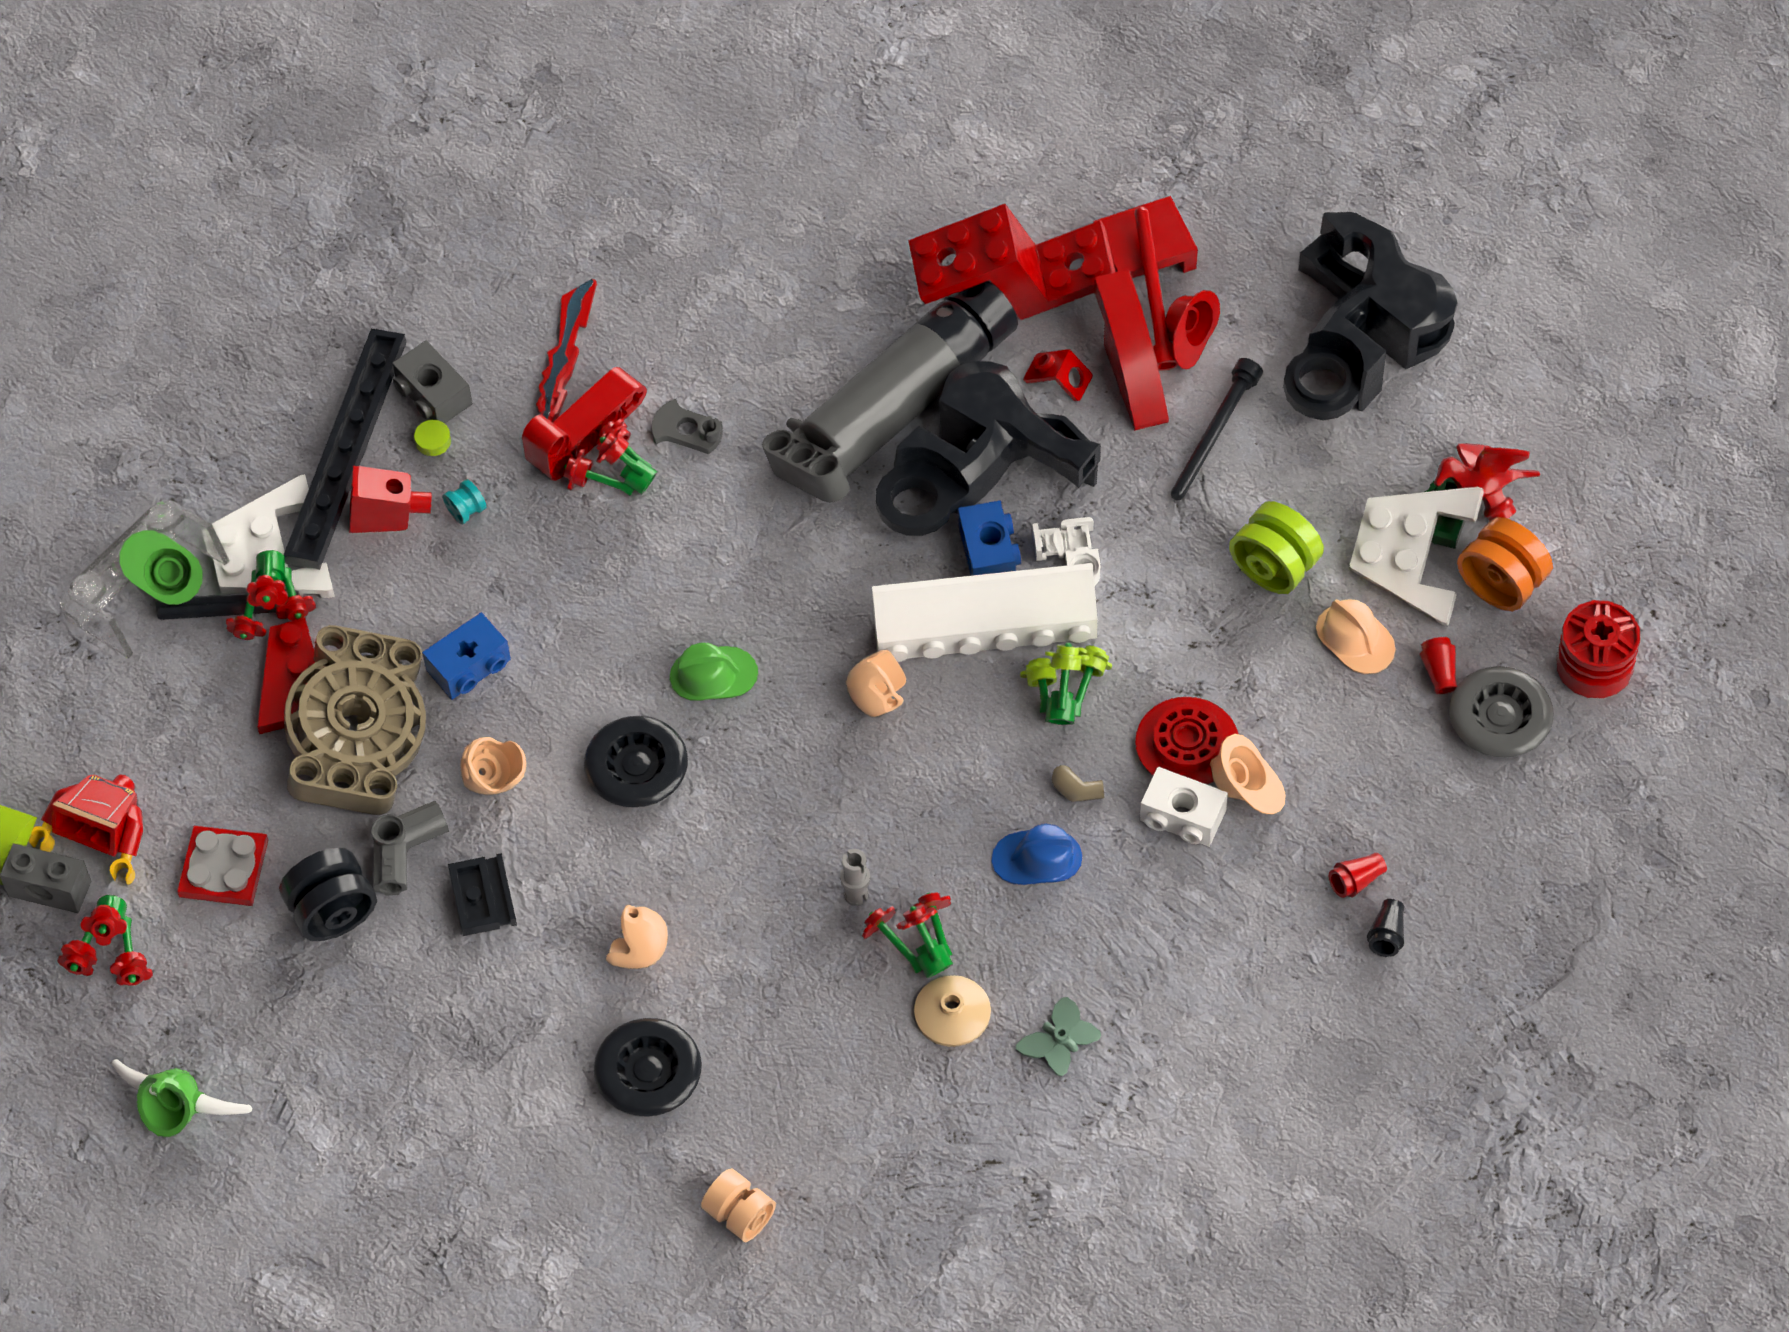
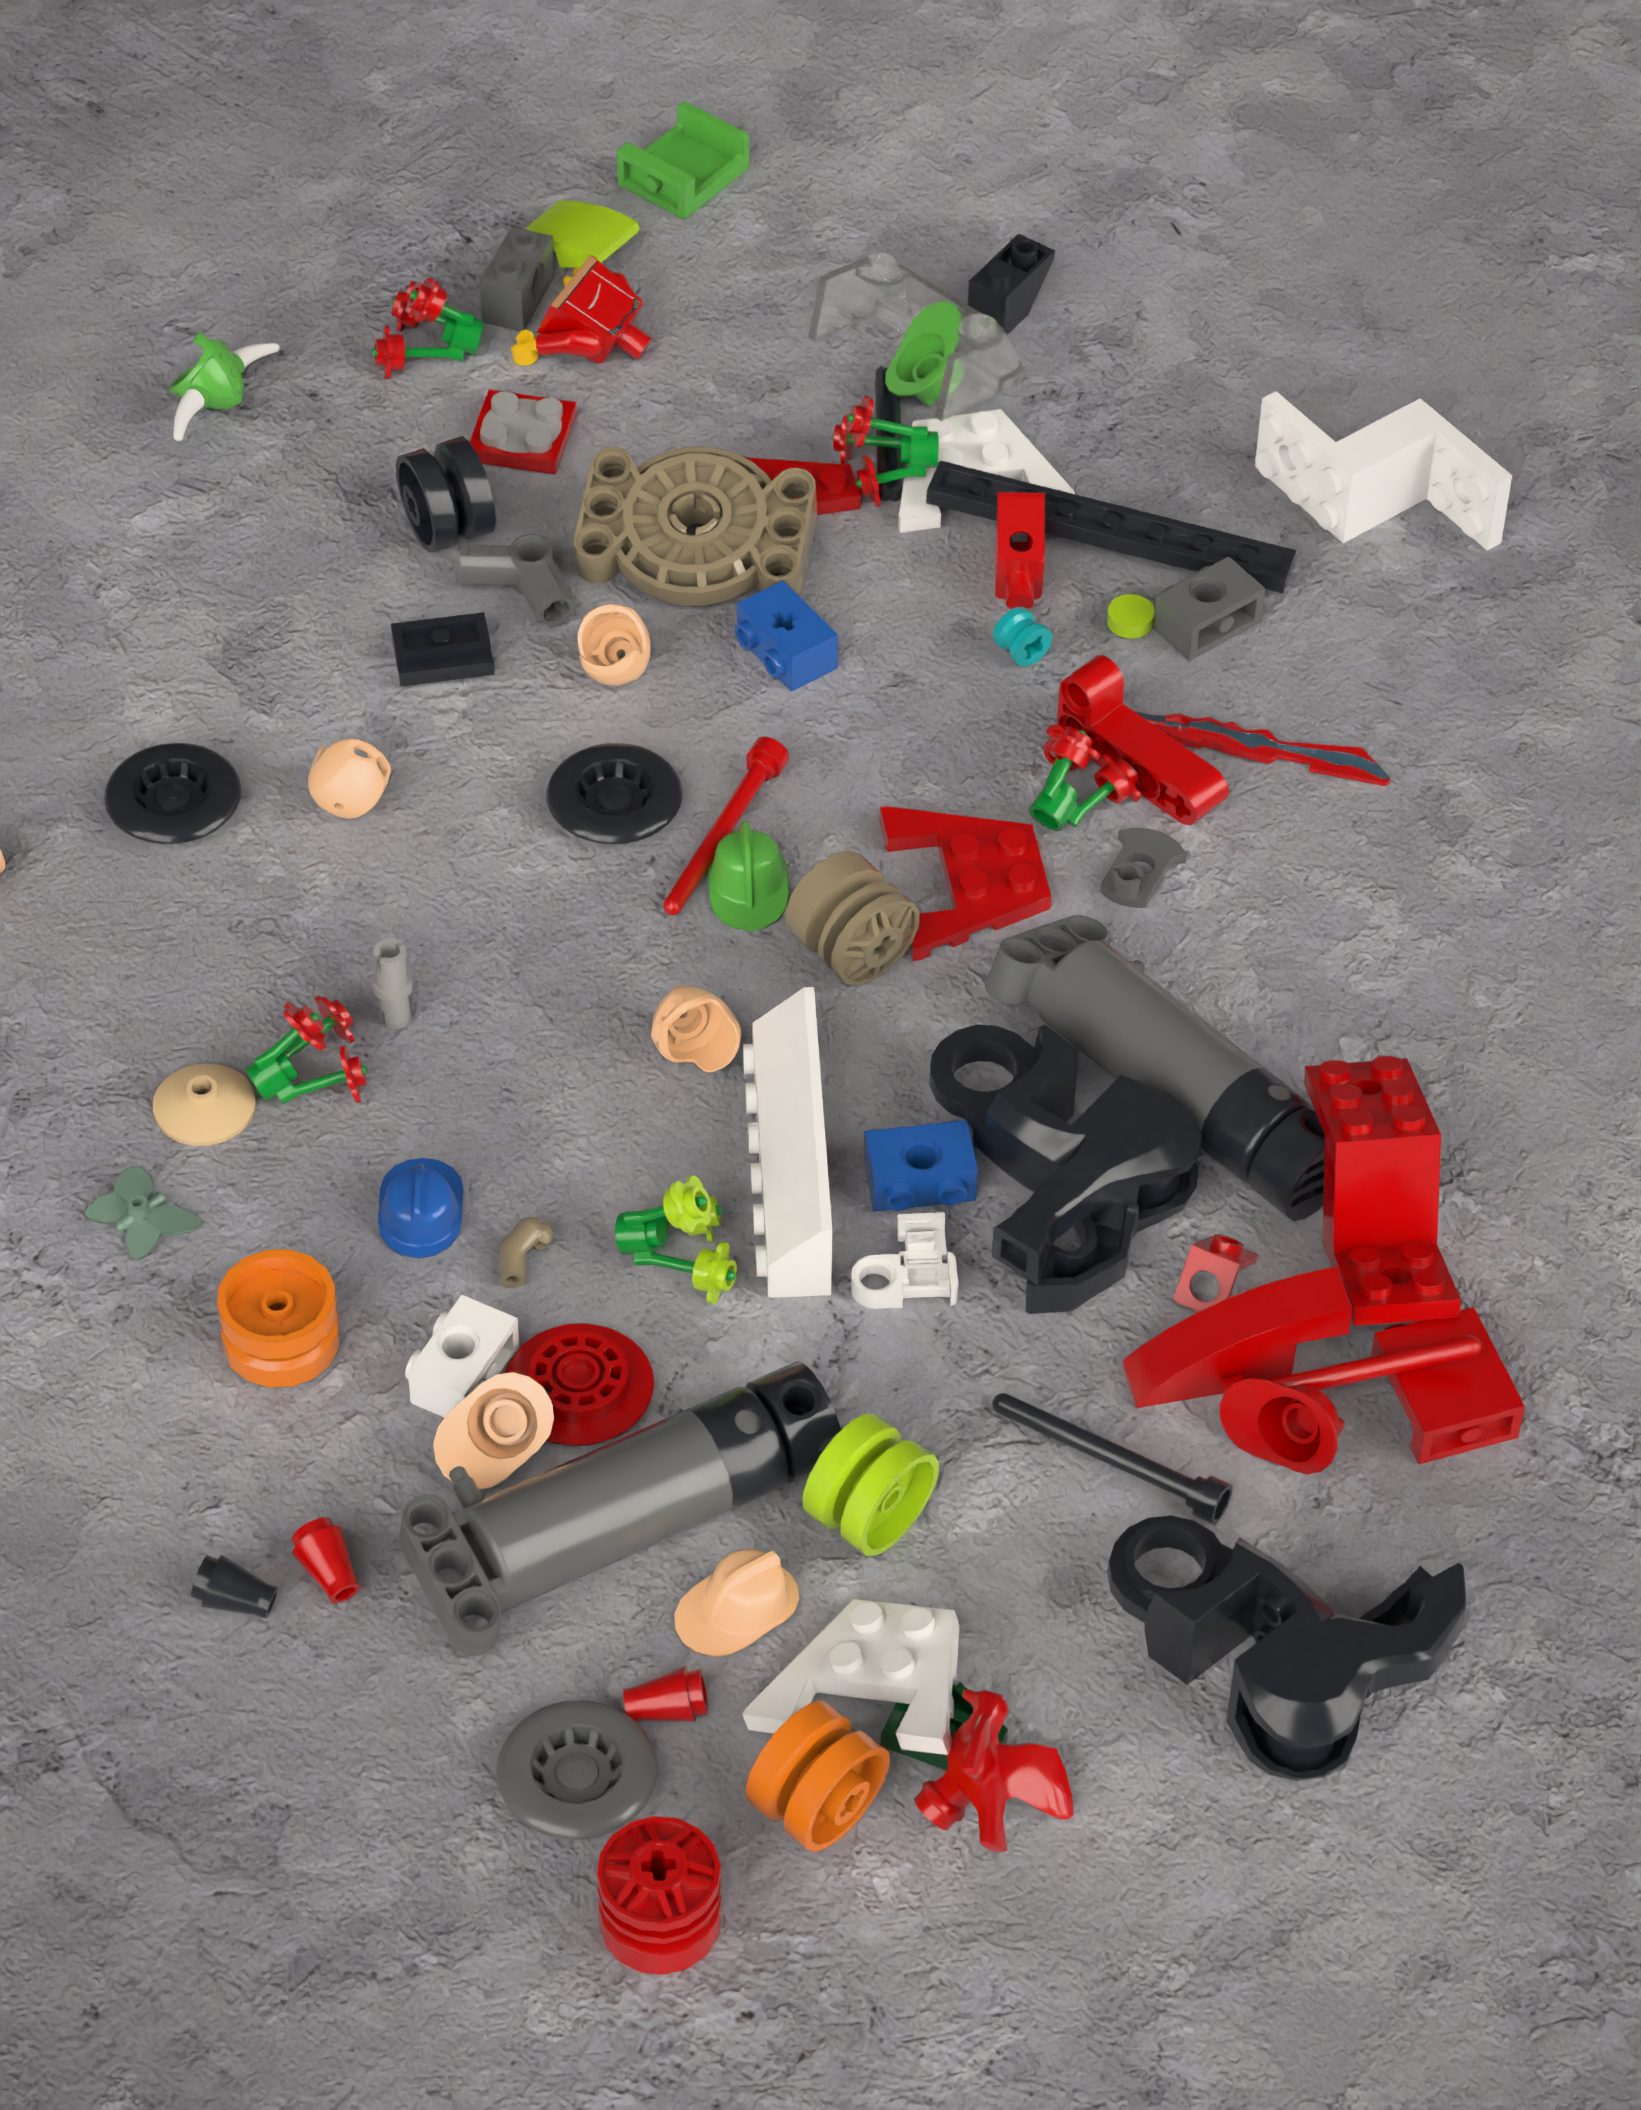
camera: 90 degrees right, 10 degrees down
(66, 521) = (1011, 281): none -> black slope
(289, 255) = (1382, 470): none -> white bracket
(598, 665) = (764, 761): none -> red piece
(700, 519) = (988, 869): none -> red wing
(773, 586) = (852, 917): none -> dark tan wheel
(1167, 919) = (278, 1318): none -> orange wheel
(1304, 695) = (612, 1500): none -> dark grey piece

